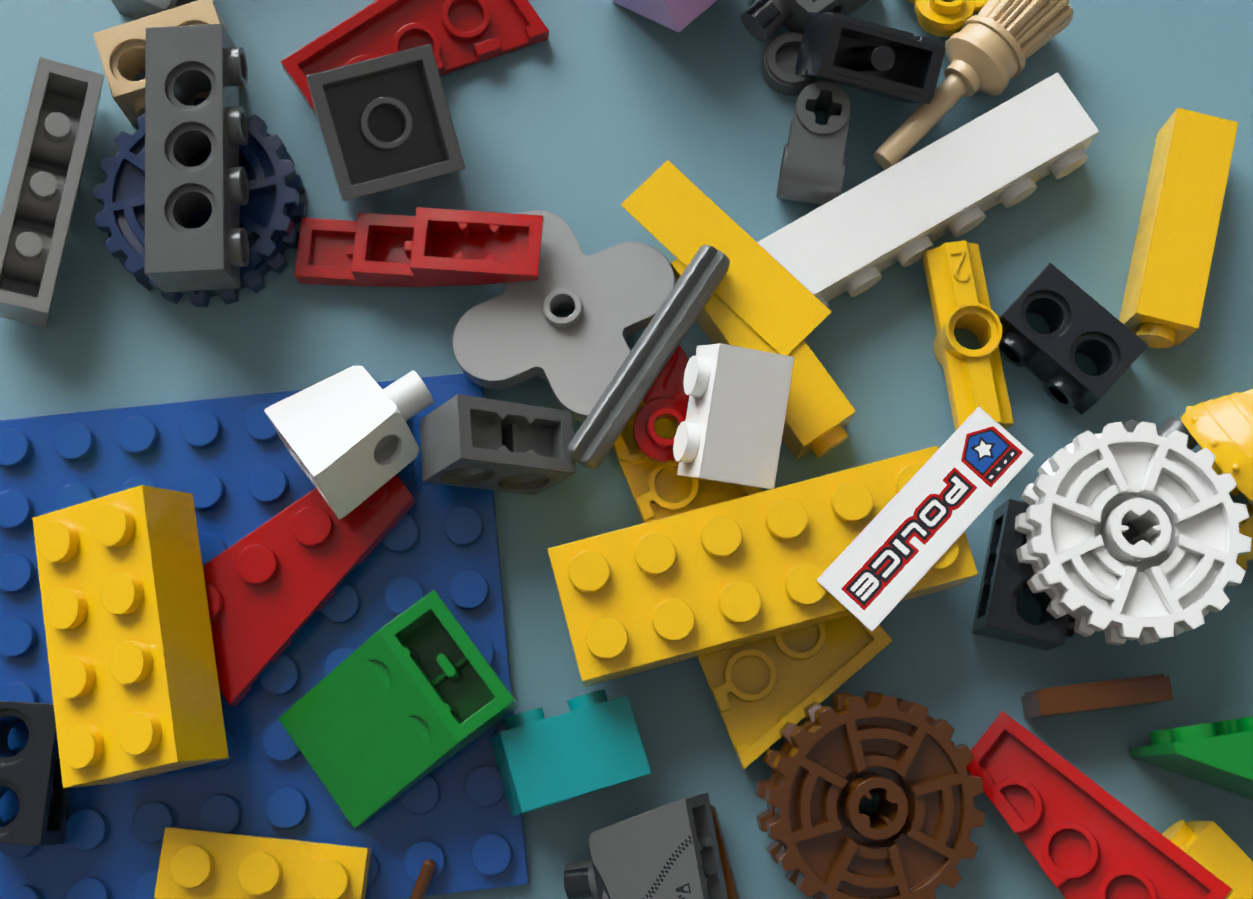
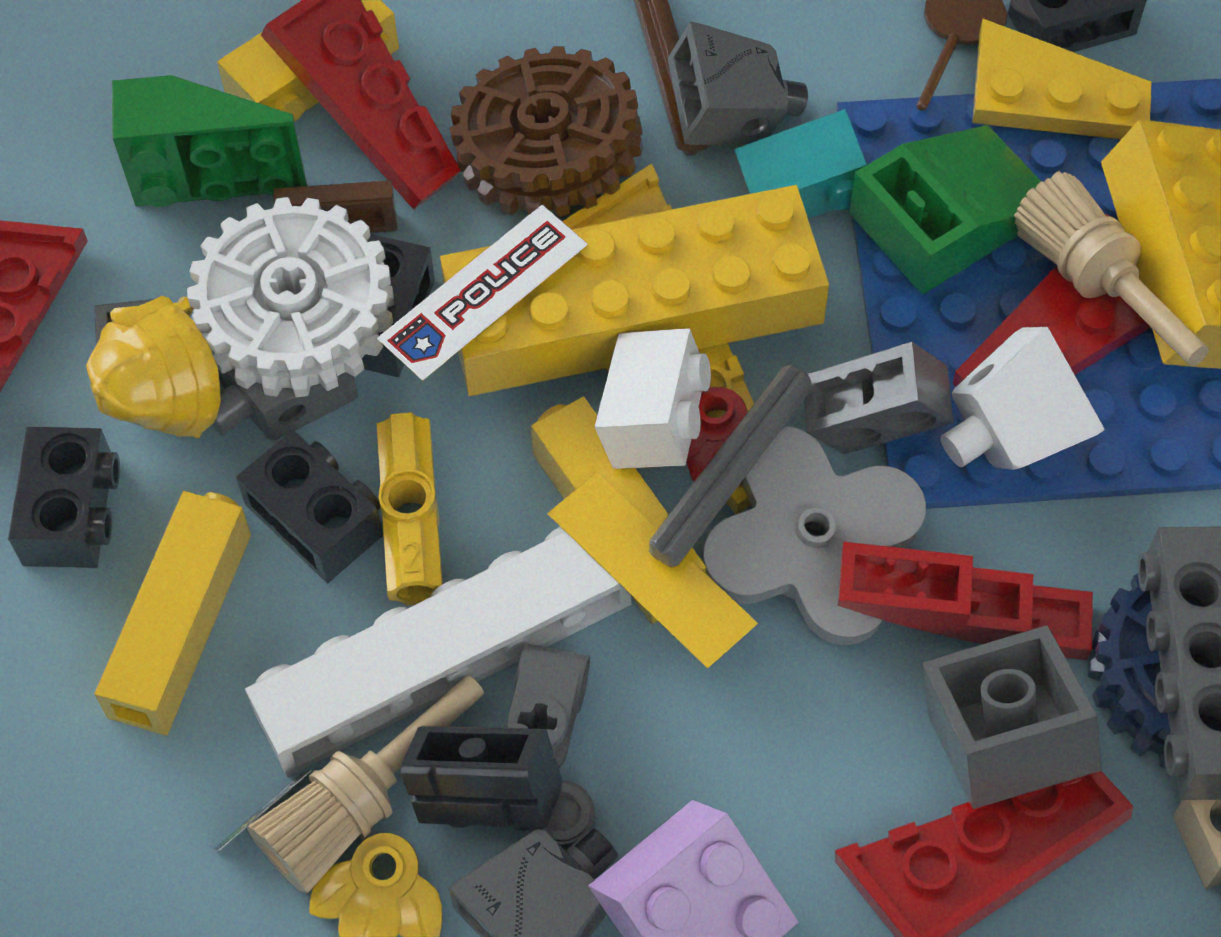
camera: 175 degrees left, 15 degrees down
(245, 604) = (1097, 255): none -> tan piece
(1063, 48) = (261, 810): none -> sticker

